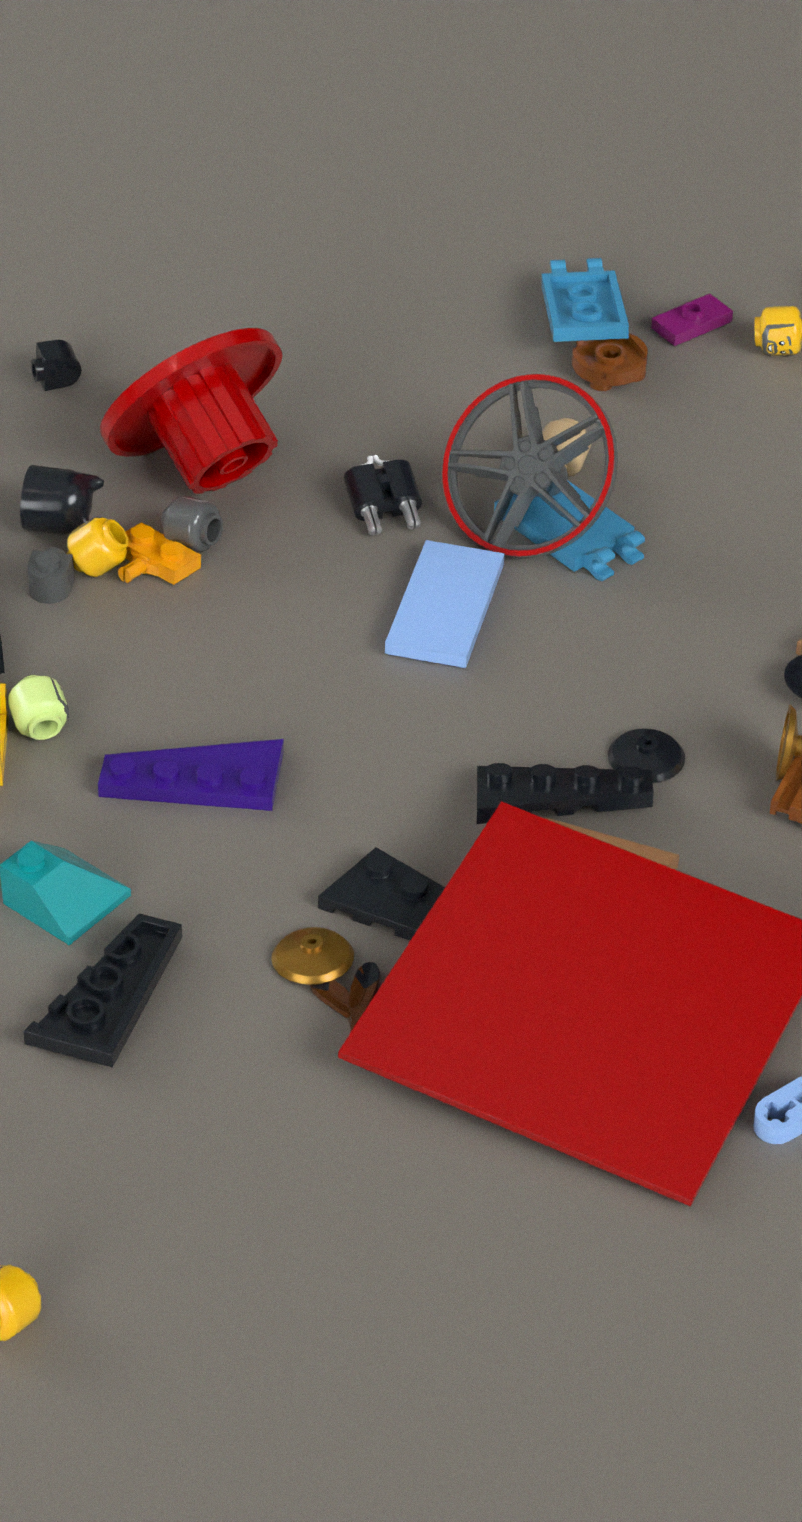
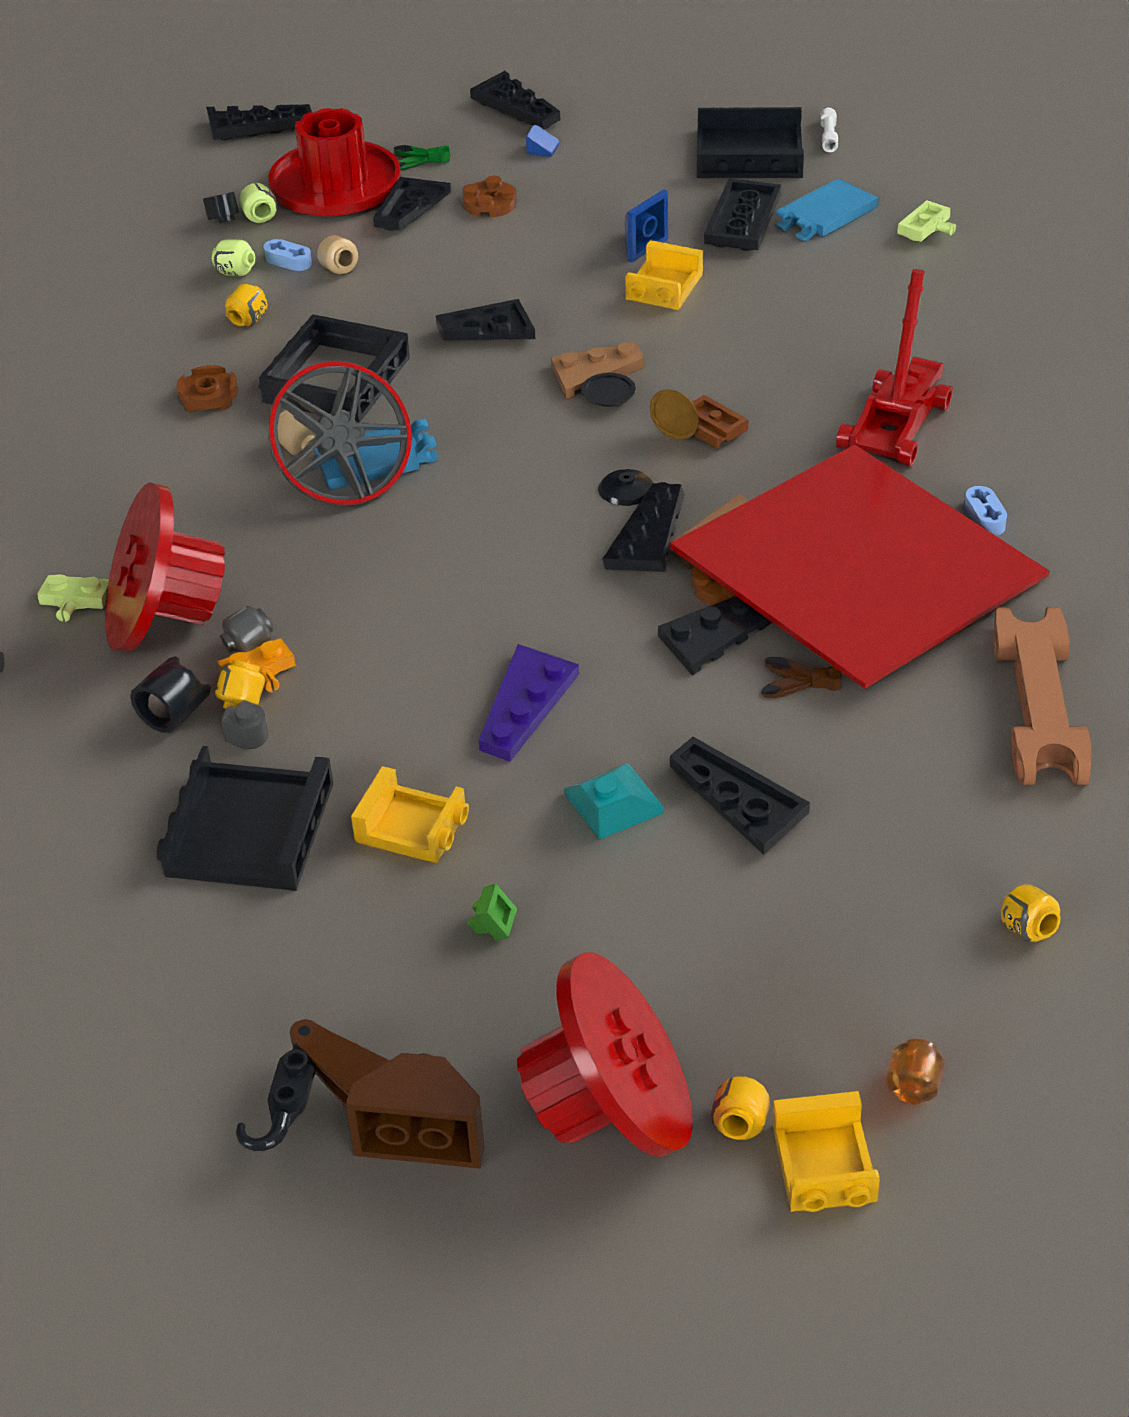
camera: 65 degrees left, 0 degrees up
(38, 707) = (409, 759): yellowish green head -> none
(312, 956) = (742, 687): pearl gold piece -> none
(345, 1261) = (1046, 734): none -> nougat piece
(383, 490) = (278, 528): black piece -> none
(445, 604) = (417, 533): light blue tile -> none
(584, 303) = (141, 378): dark azure tile -> none
(692, 319) = (191, 343): magenta plate -> none
(710, 475) = (388, 345): none -> black window

